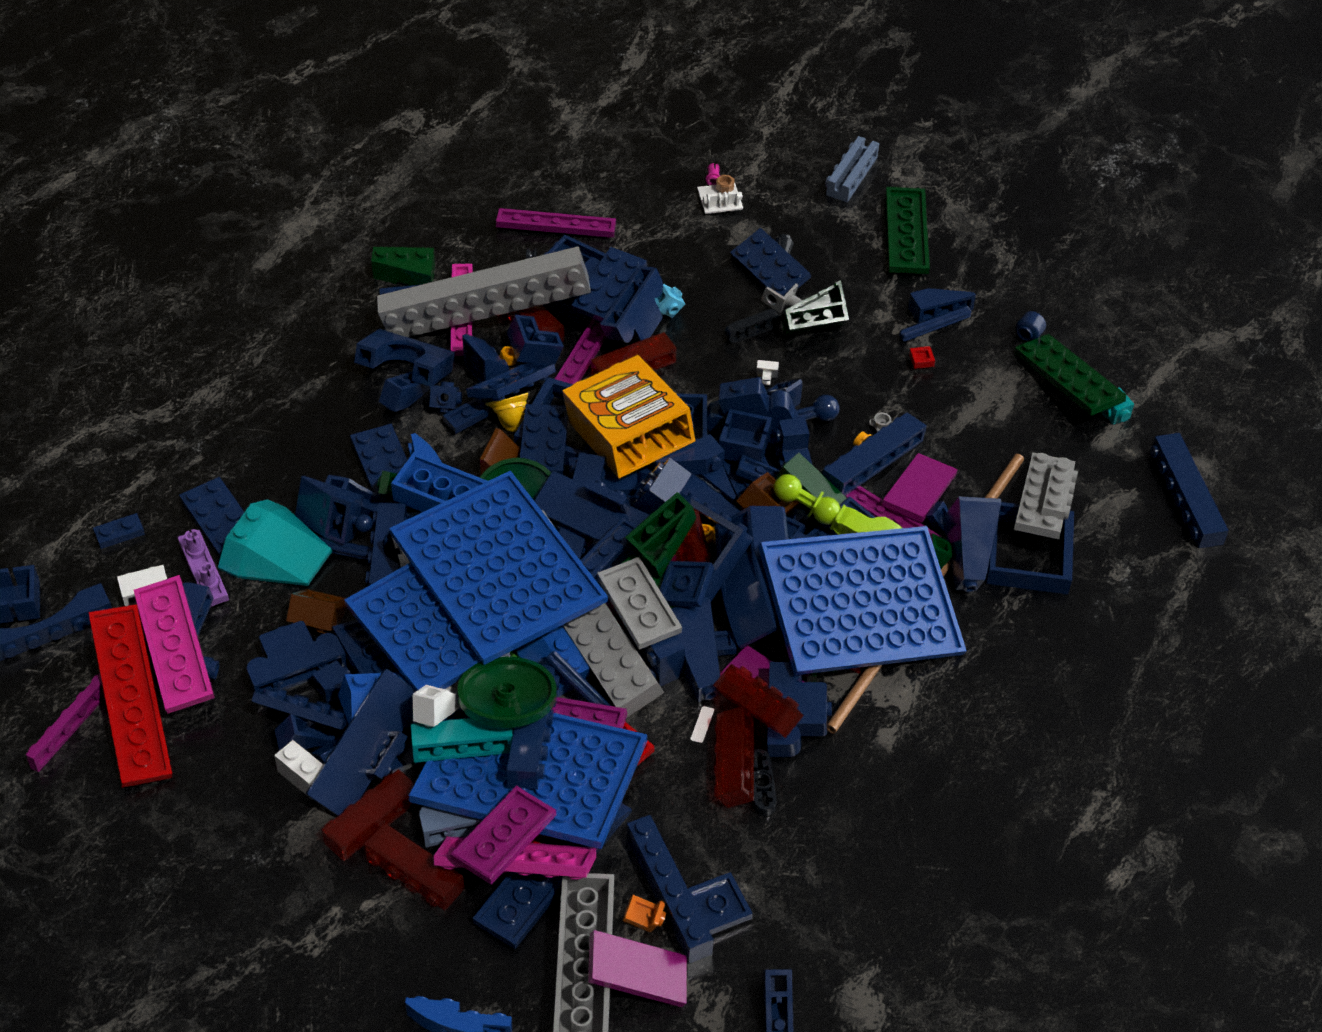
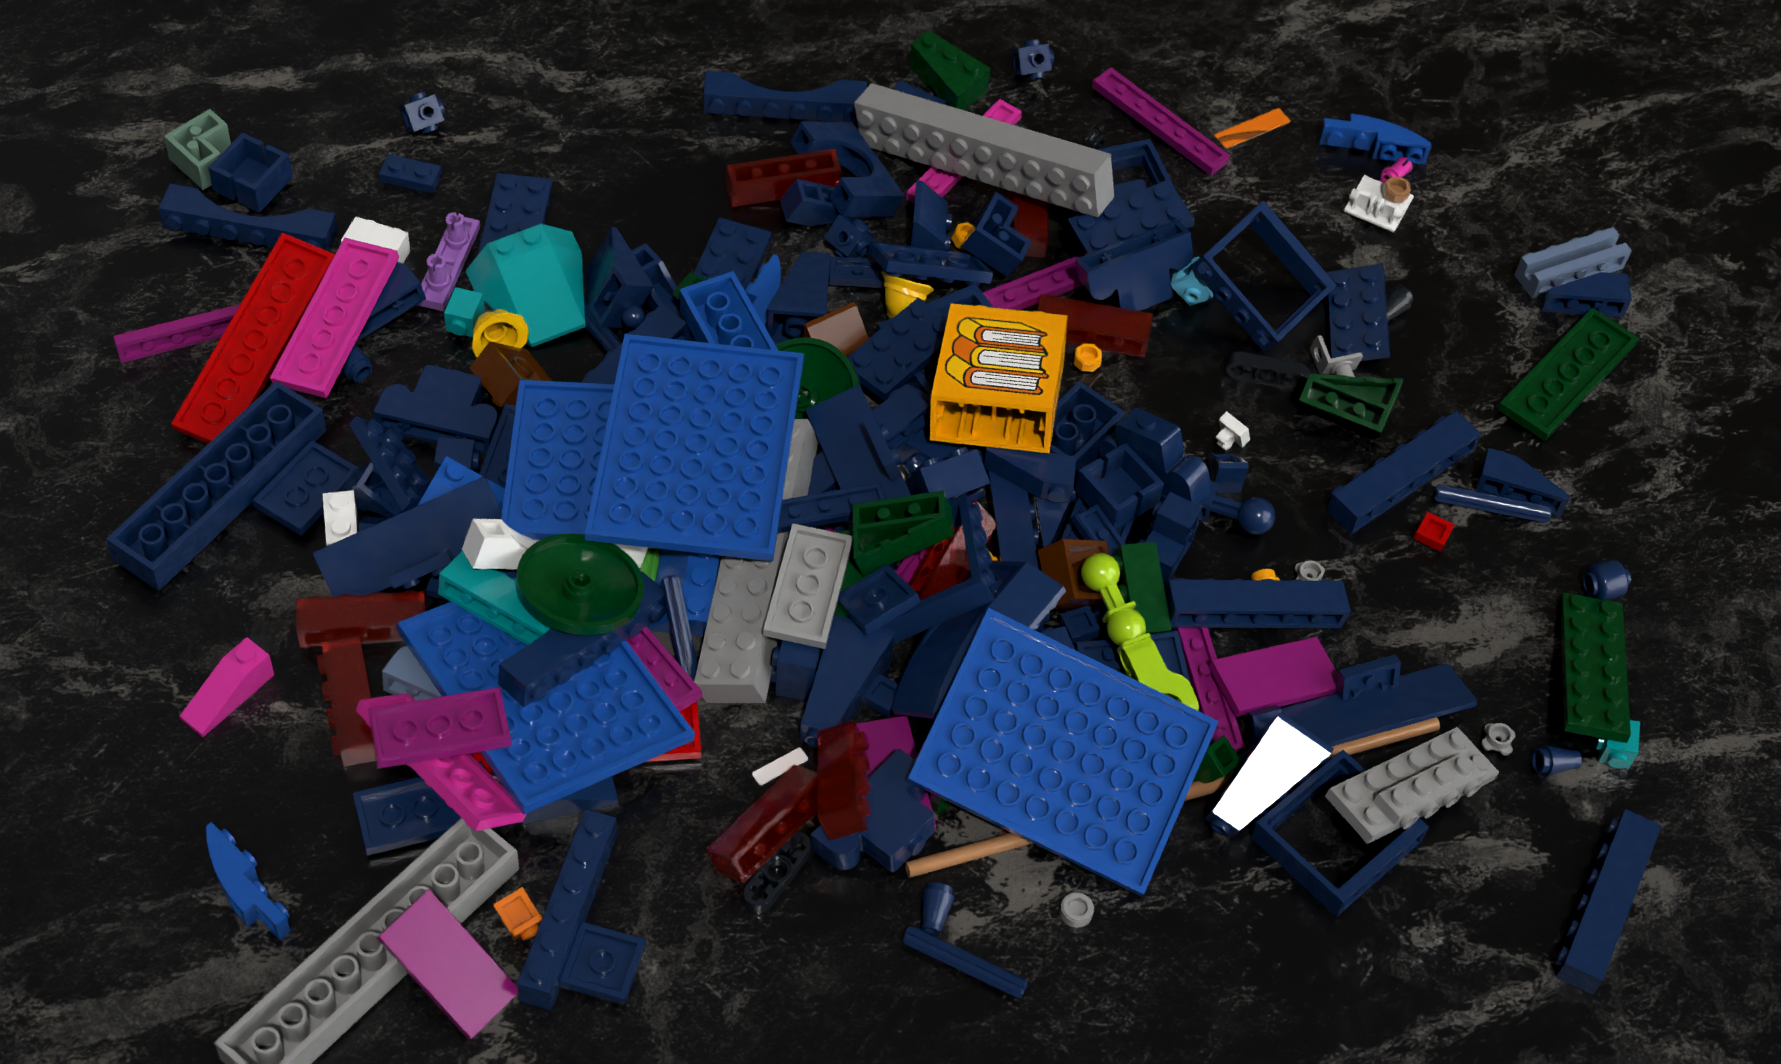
camera: 35 degrees right, 5 degrees up
(92, 487) = (413, 112): none -> dark blue brick
(194, 800) = (215, 486): none -> dark blue brick
(248, 590) = (463, 311): none -> teal brick
(251, 763) = (298, 490): none -> dark blue plate
(280, 585) = (500, 328): none -> yellow piece
(286, 357) = (731, 95): none -> dark blue arch
(326, 915) = (228, 686): none -> dark pink slope
(367, 387) = (771, 178): none -> clear red brick
(448, 229) = (1032, 59): none -> dark blue brick
(455, 444) = (799, 297): none -> dark blue slope
(608, 197) = (1252, 128): none -> orange sticker
(685, 160) = (1381, 137): none -> blue slope
(711, 253) = (1289, 252): none -> dark blue window
(866, 735) = (935, 906): none -> dark blue cone
(876, 335) = (1402, 472): none -> dark blue brick
(883, 175) = (1602, 291): none -> dark blue slope
(910, 755) = (965, 961): none -> dark blue axle
(939, 685) = (1076, 910): none -> light grey tile
(985, 462) = (1378, 699): none -> dark blue bracket
(1057, 444) = (1501, 732): none -> light grey plate
(1094, 437) = (1553, 760): none -> dark blue cone

